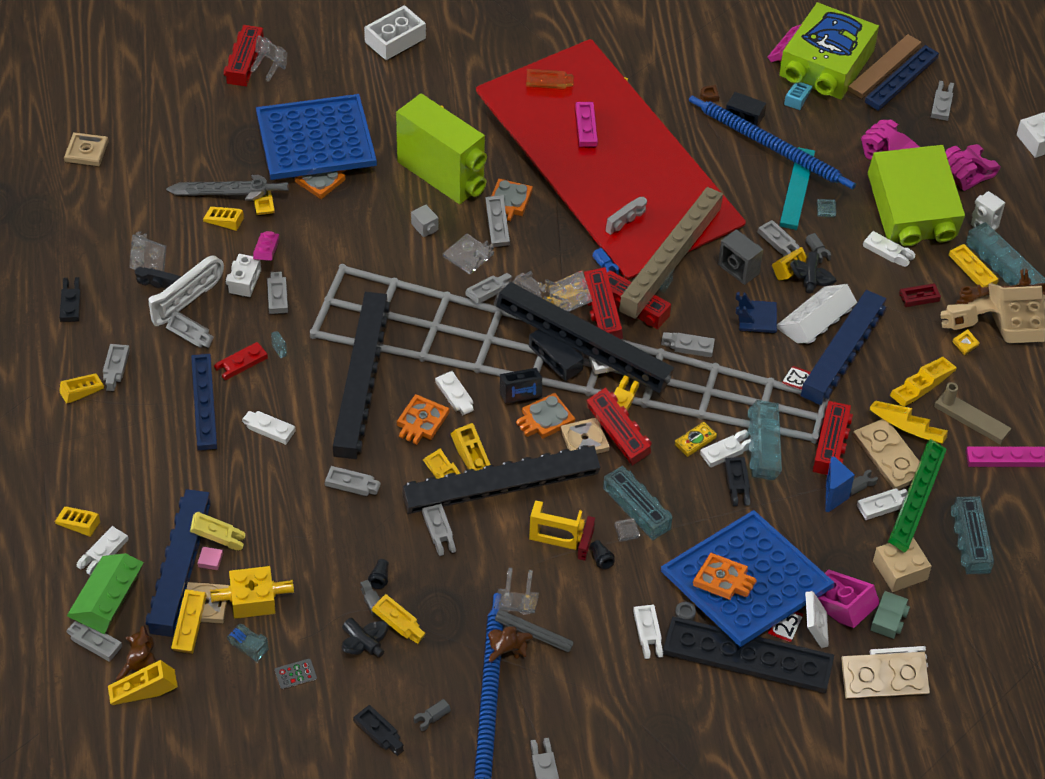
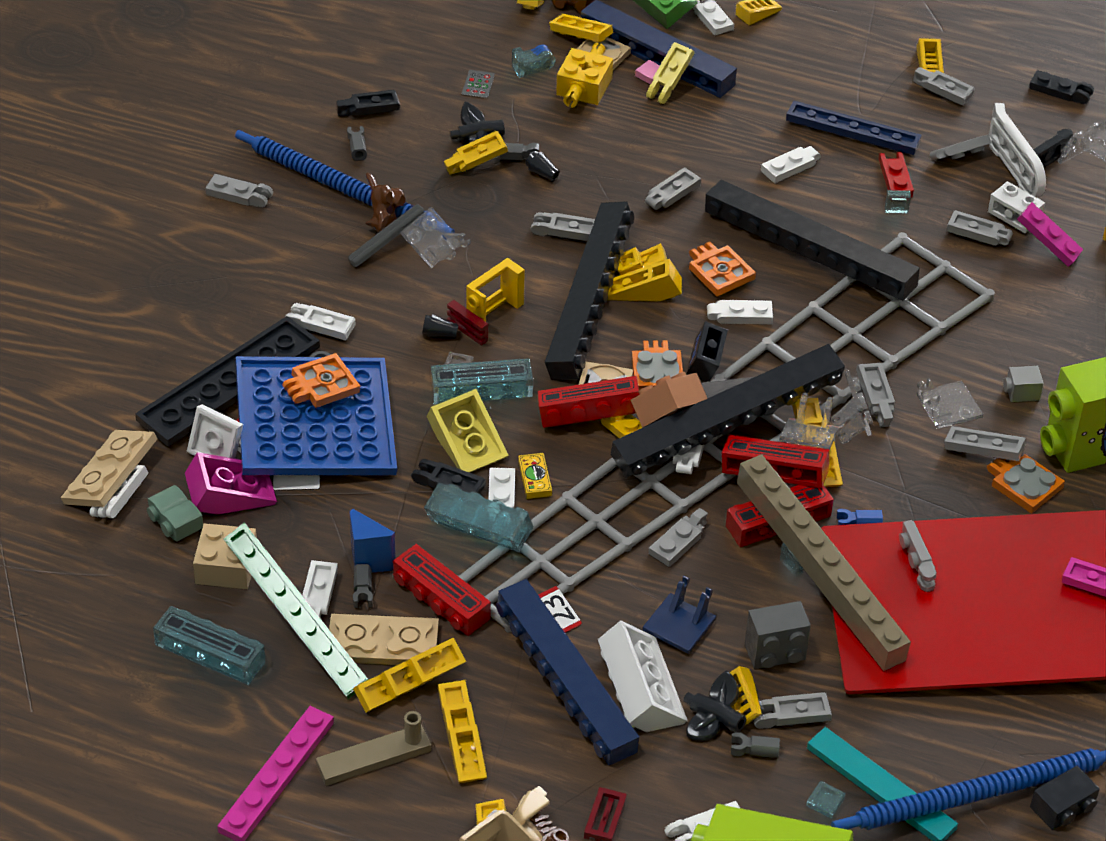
camera: 120 degrees right, 5 degrees down
(601, 368) = (668, 397): none -> nougat brick
(690, 489) = (467, 432): none -> light yellow slope

